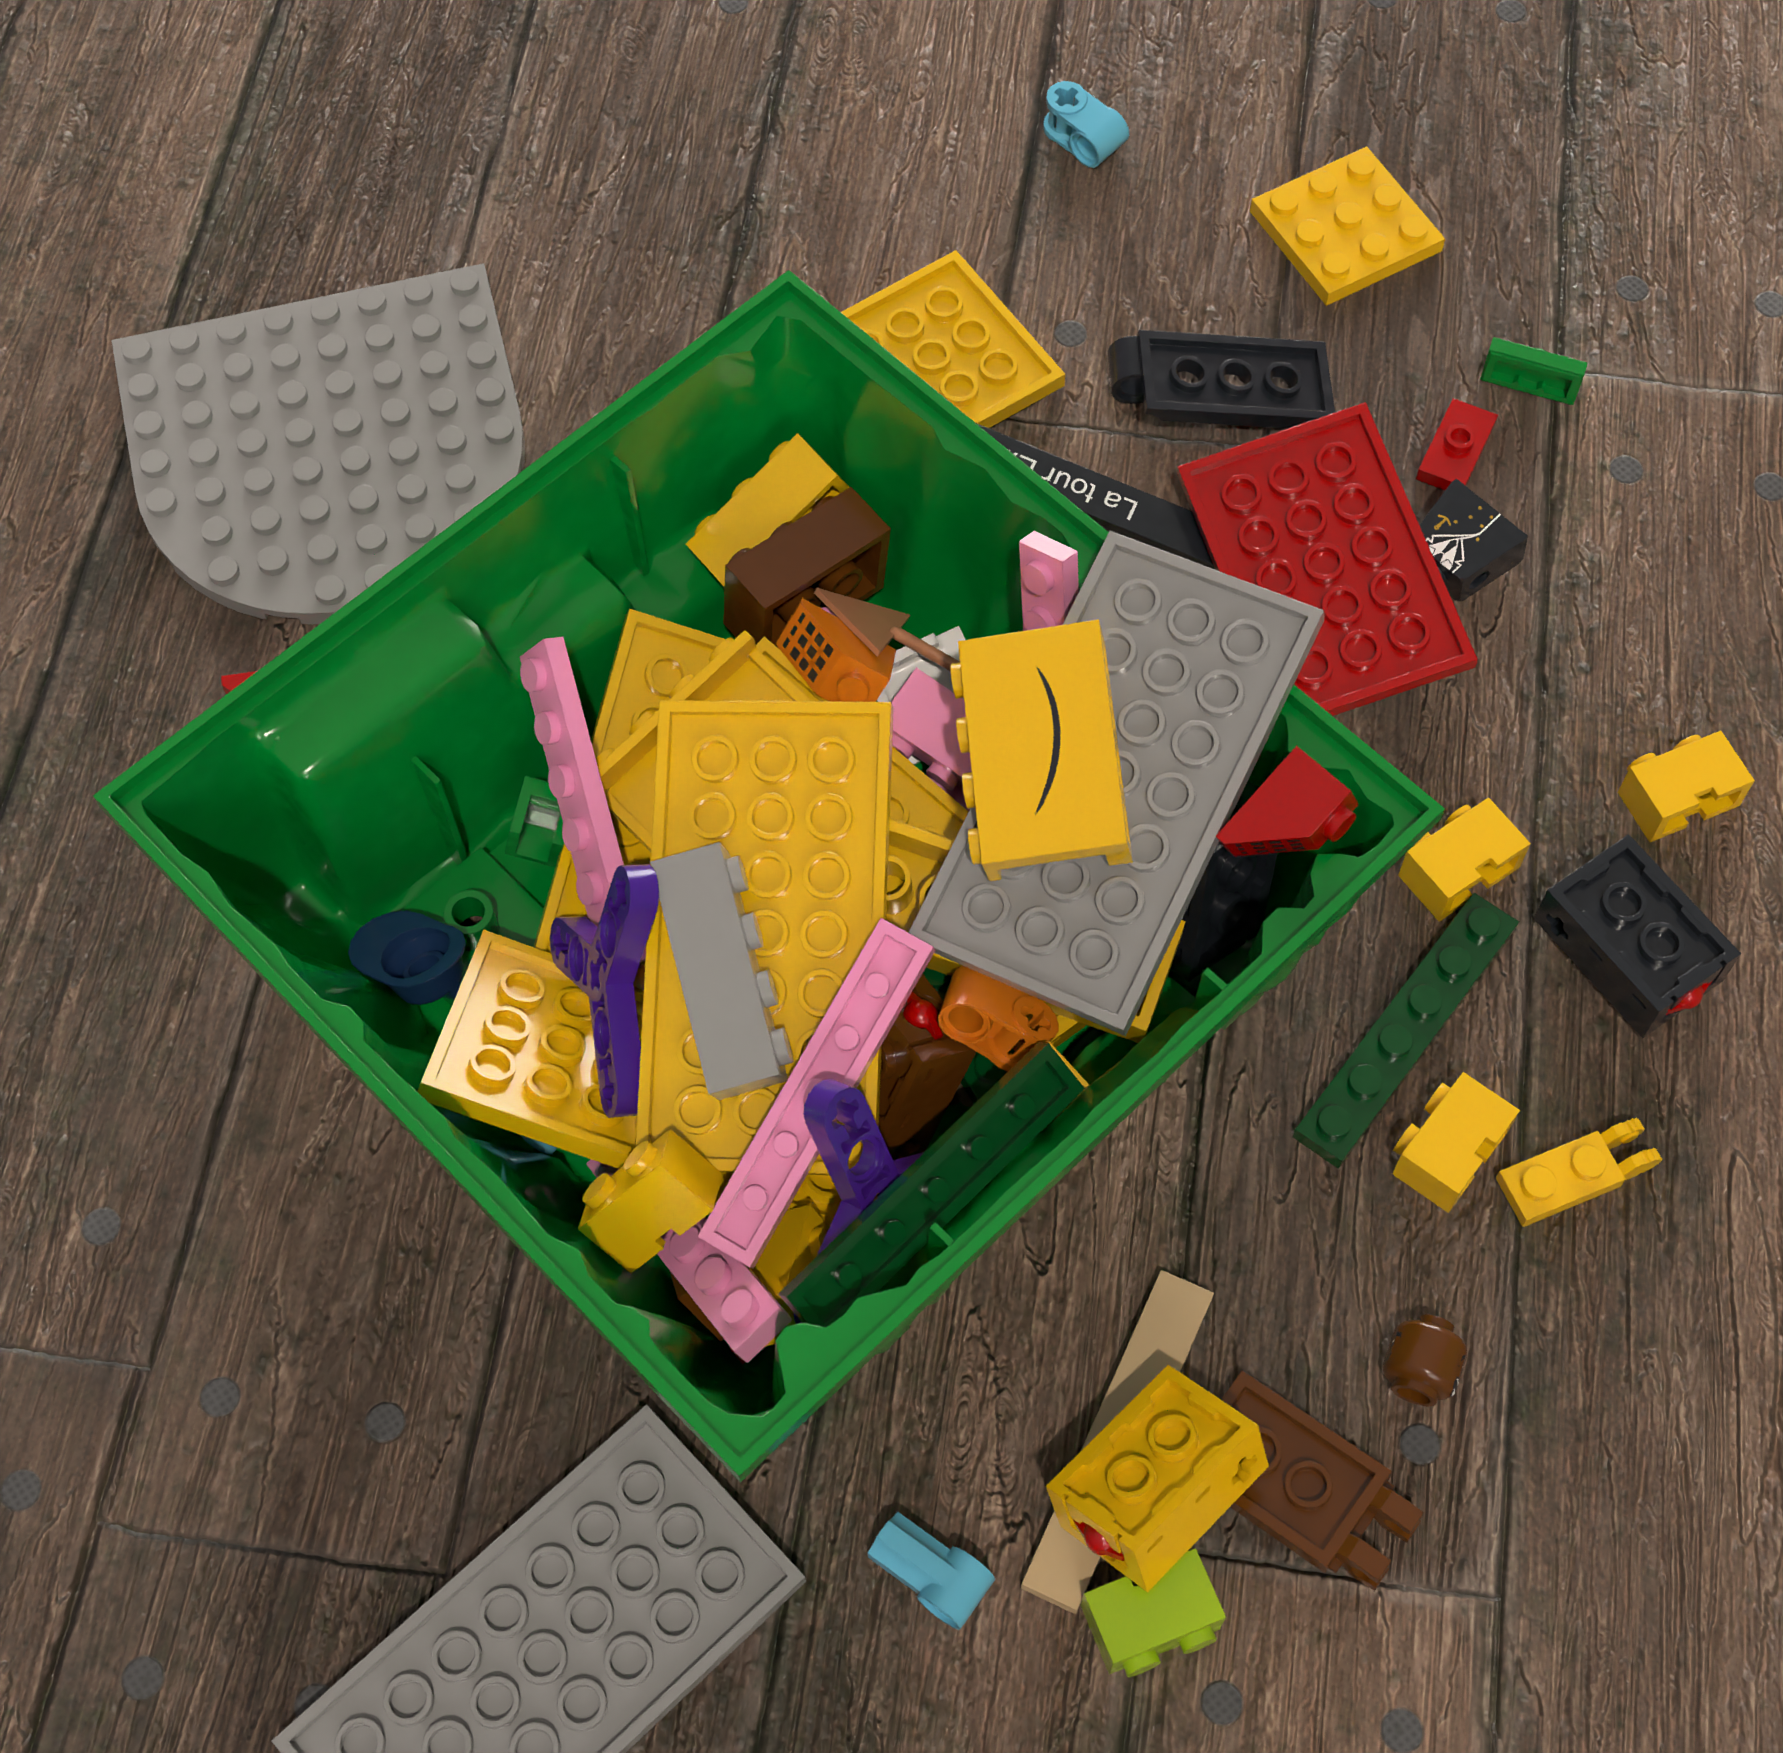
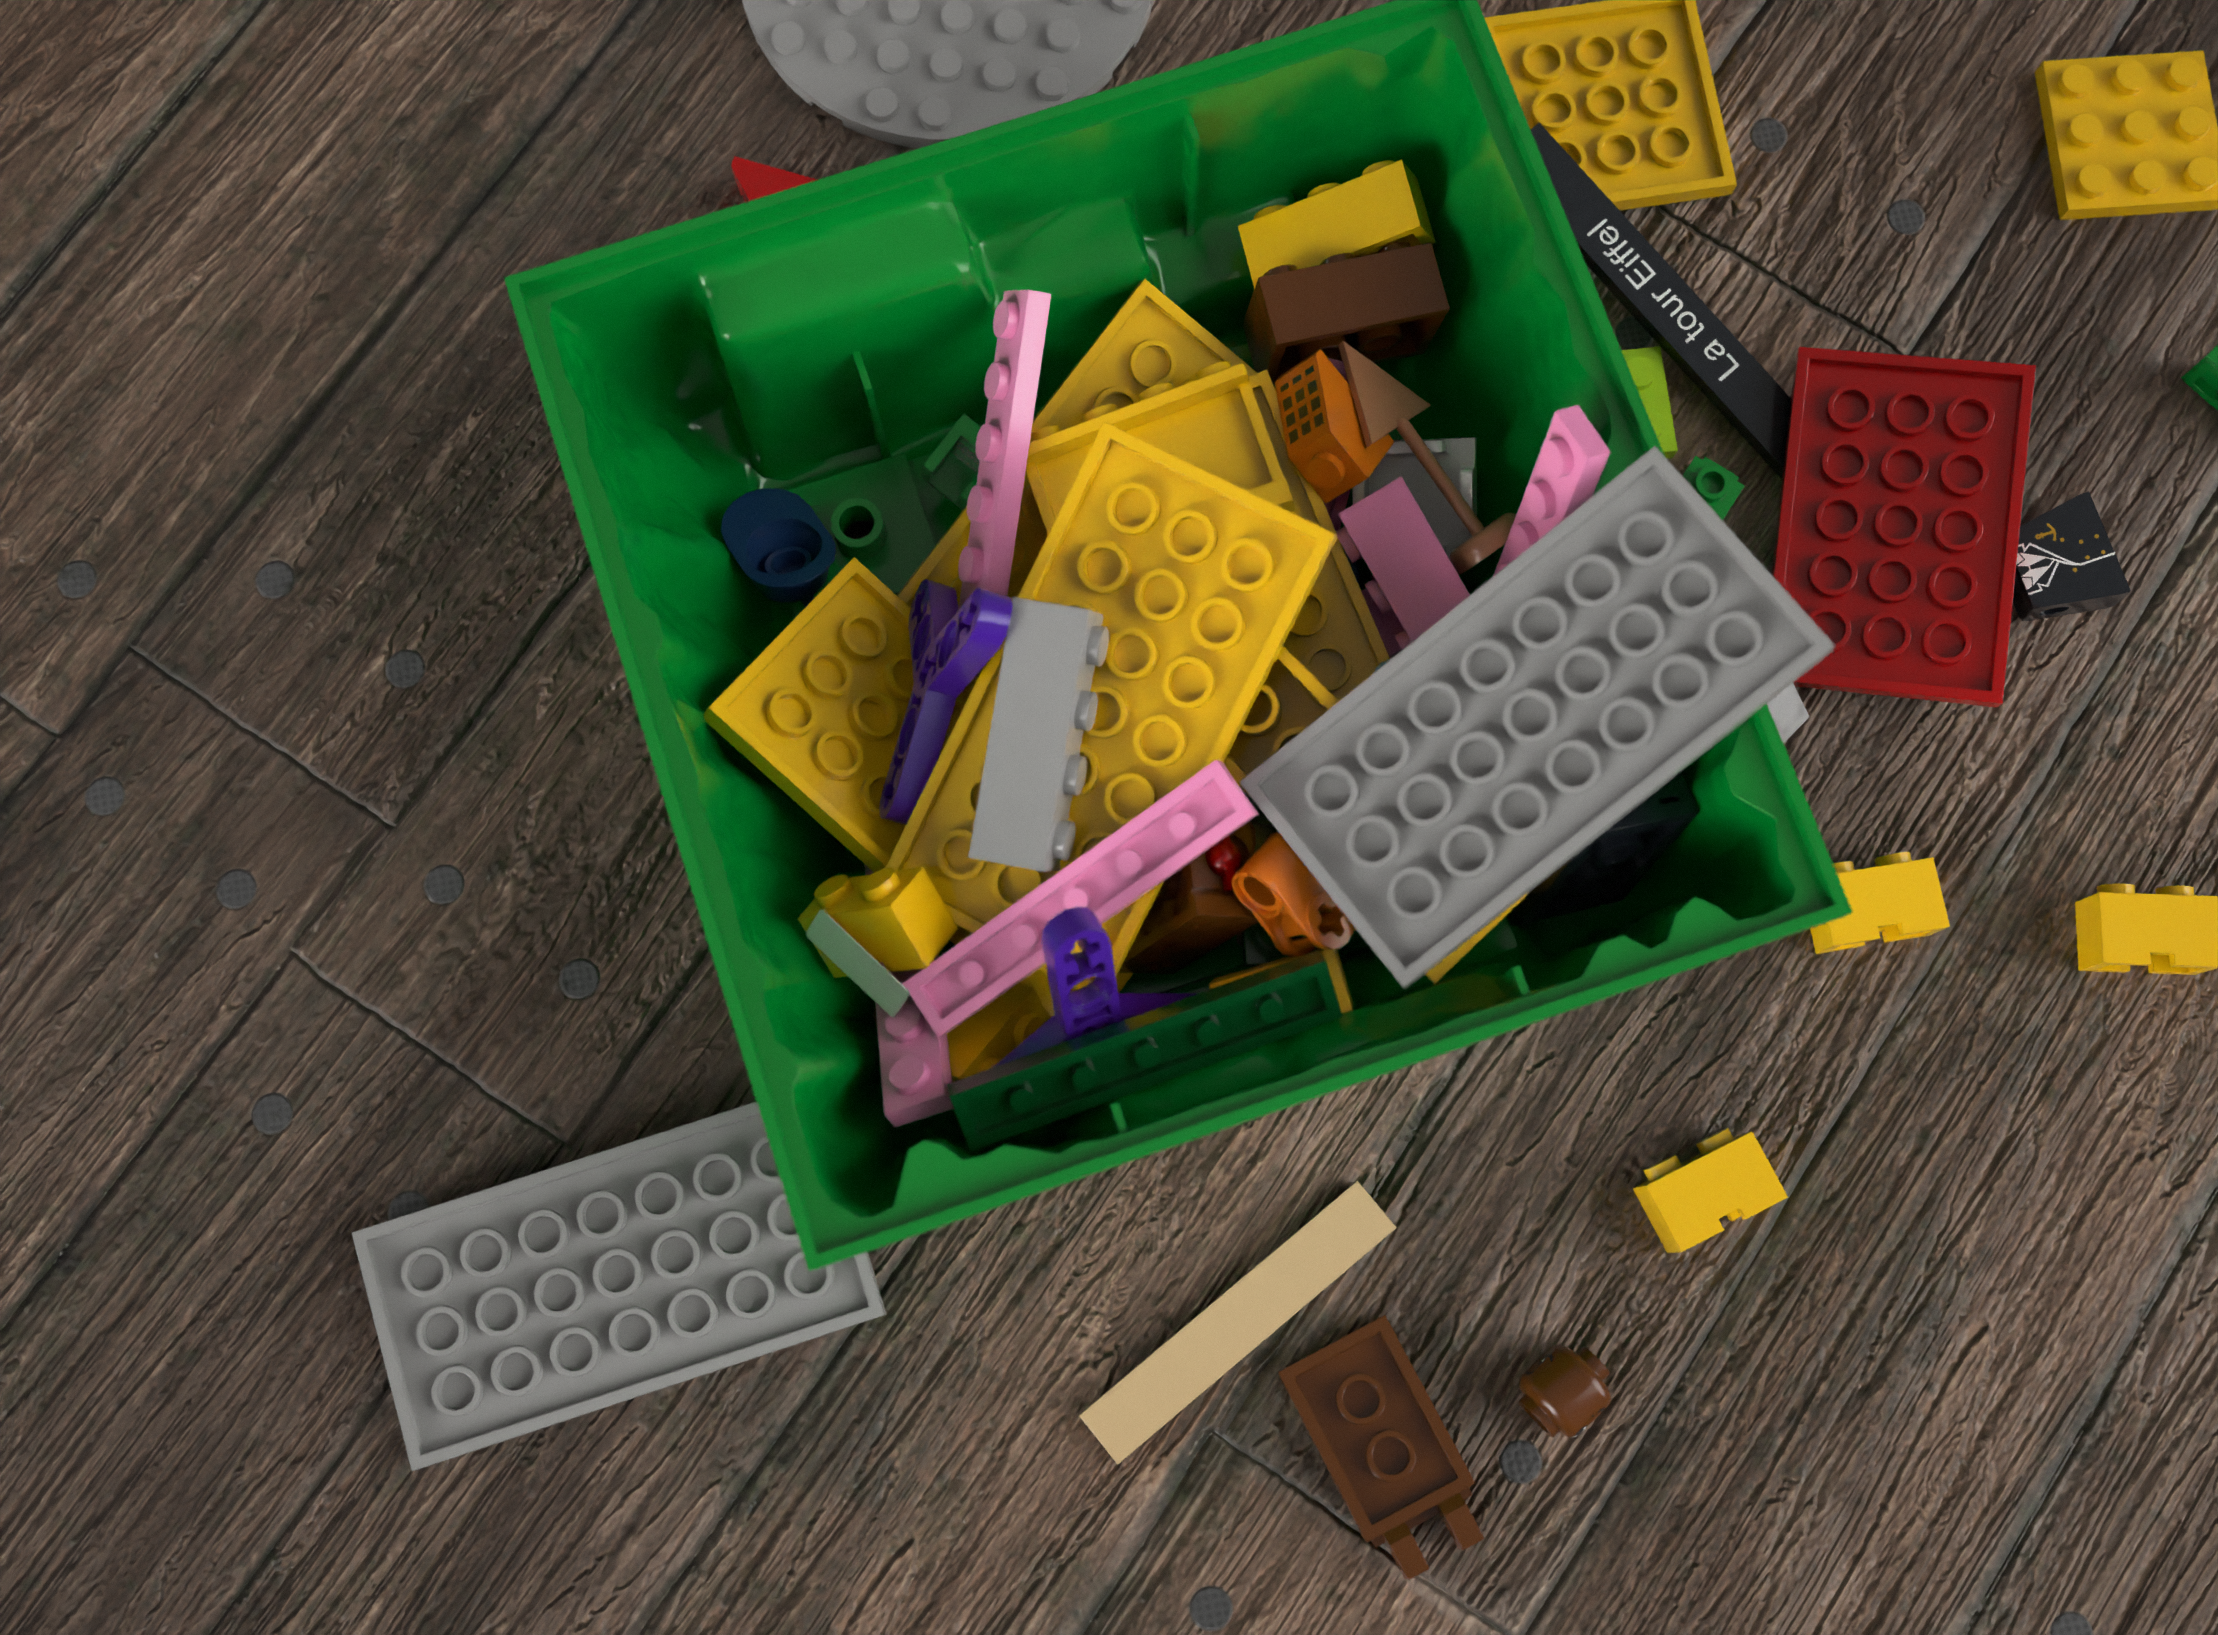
camera: 25 degrees right, 15 degrees up
(649, 1240) = (857, 963): none -> sticker
(944, 1578) = (1008, 1374): medium azure piece -> none
(1040, 748) = (1462, 658): yellow panel -> none
(1140, 1625) = (1184, 1507): lime brick -> none
(1148, 364) = (1830, 209): black hinge -> none
(1158, 1477) = (1246, 1392): yellow piece -> none
(1291, 811) = (1692, 842): red slope -> none
(1405, 1030) = (1724, 1051): dark green plate -> none
(1457, 445) = (2113, 446): red plate -> none
(1573, 1173) = (1809, 1275): yellow hinge -> none
(1636, 936) = (2007, 1071): black piece -> none

